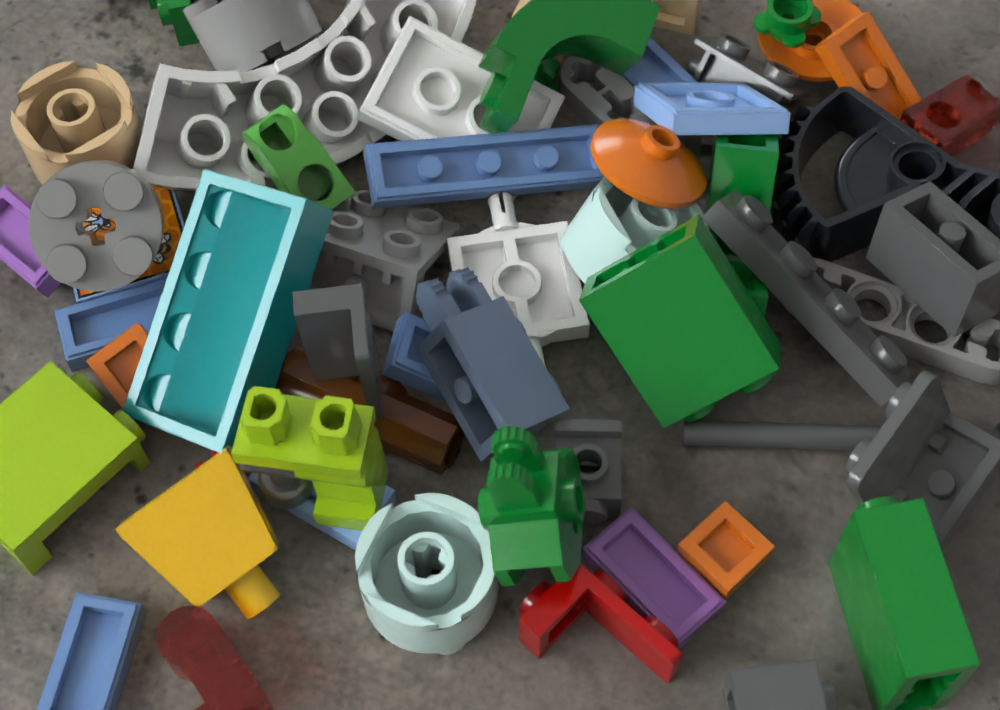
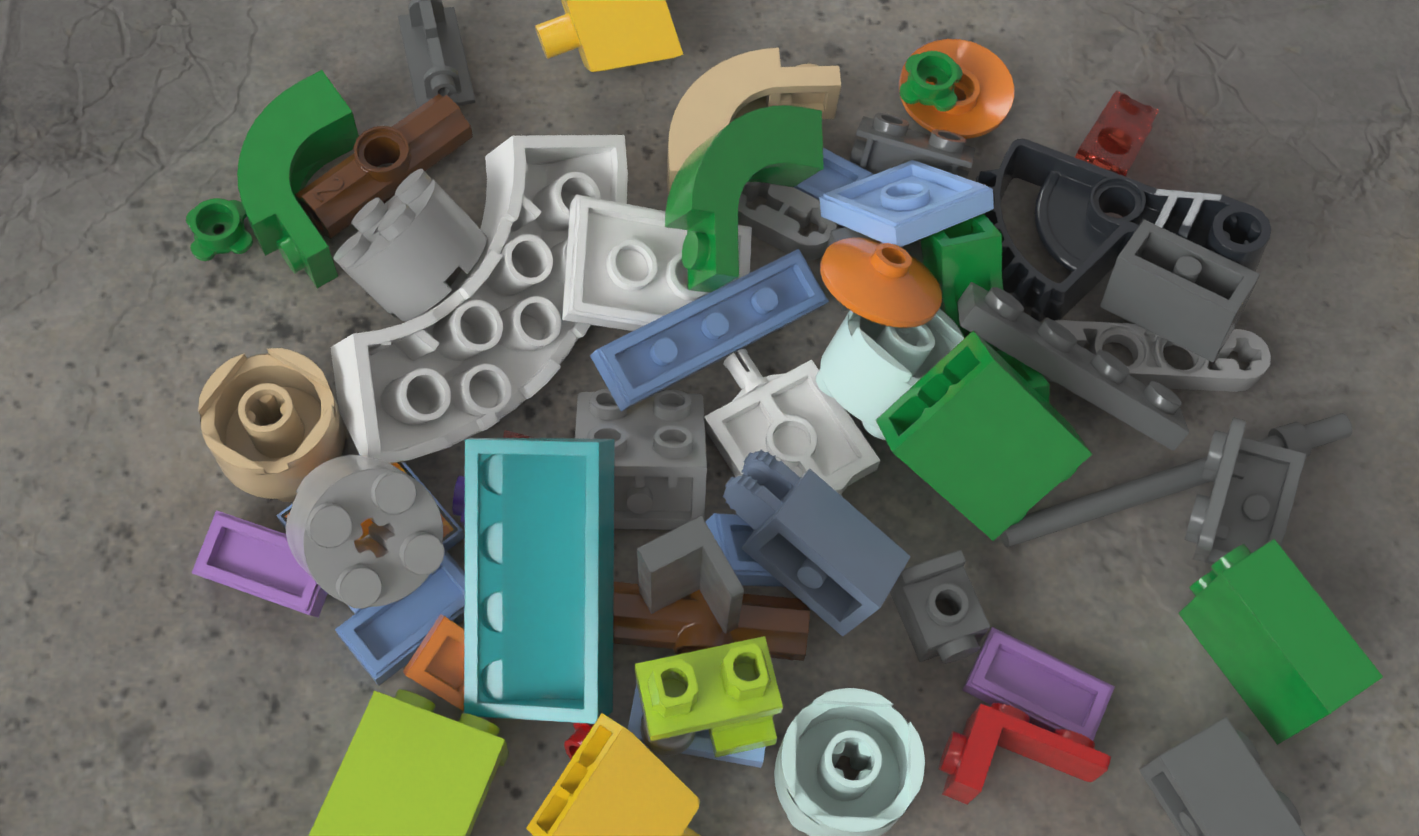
camera: 30 degrees left, 5 degrees up
(296, 159) = (532, 391): bright green leg -> none
(532, 507) = (933, 675): green hinge -> none
(725, 549) = (1094, 637): orange plate -> none
(864, 60) = (1024, 109): orange plate -> none

